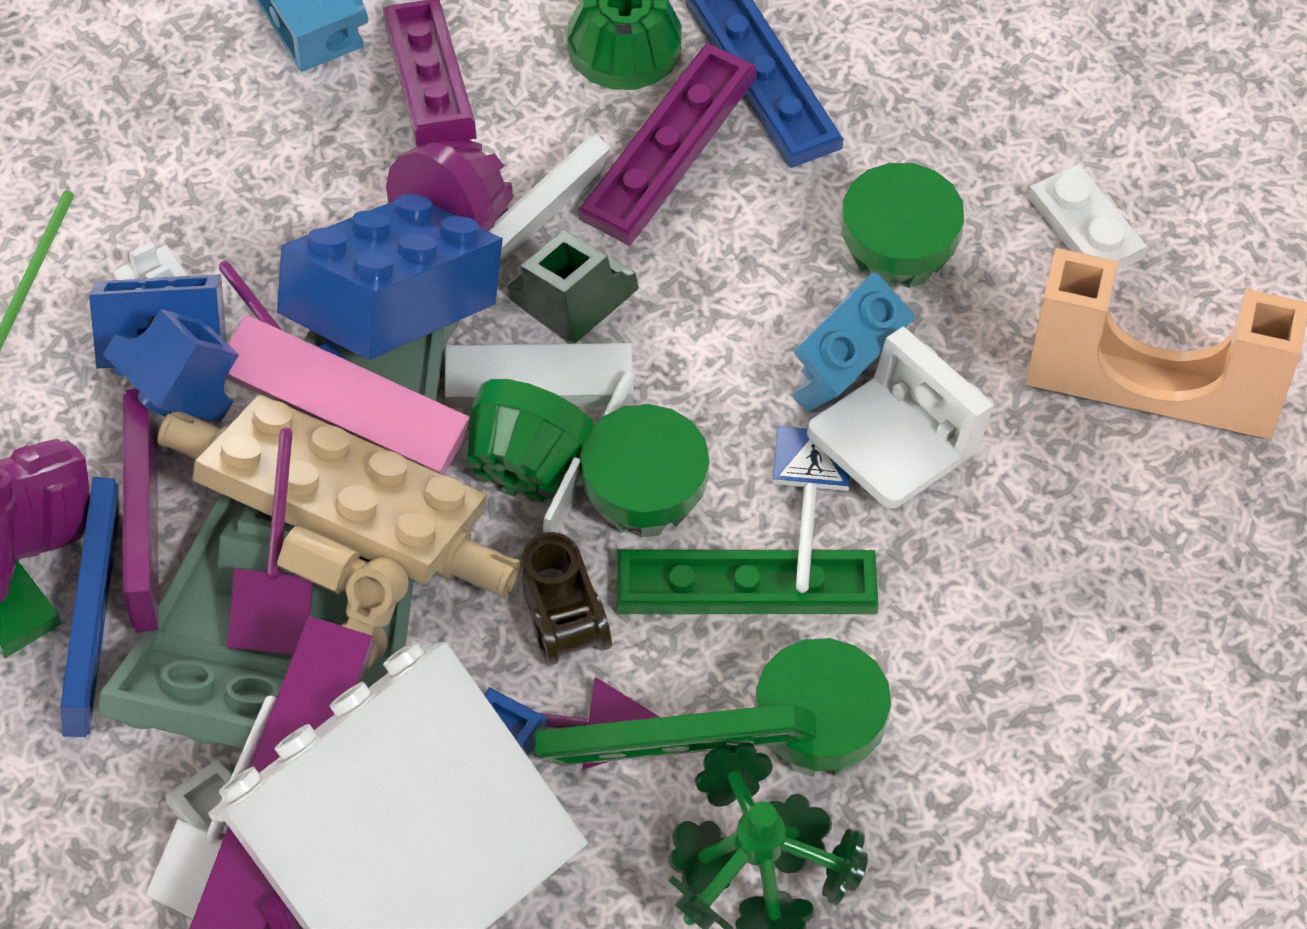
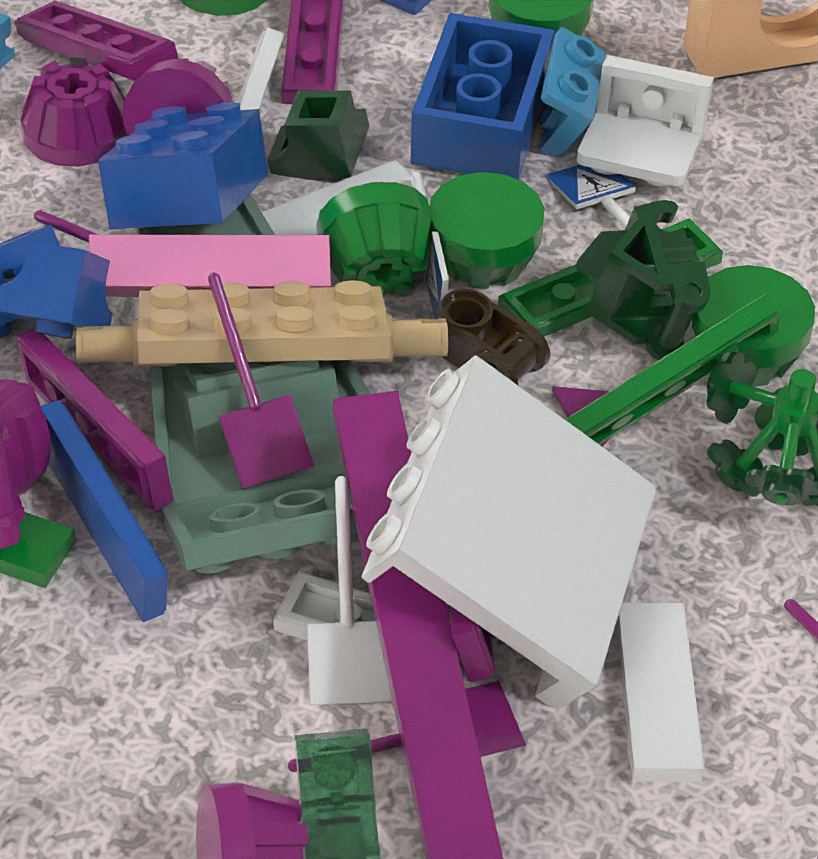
camera: 30 degrees left, 10 degrees down
(353, 148) = (72, 114): none -> magenta piece
(370, 586) = (308, 373): tan bar -> none
(742, 606) = (646, 279): none -> dark green piece
(749, 307) = (481, 97): none -> blue brick

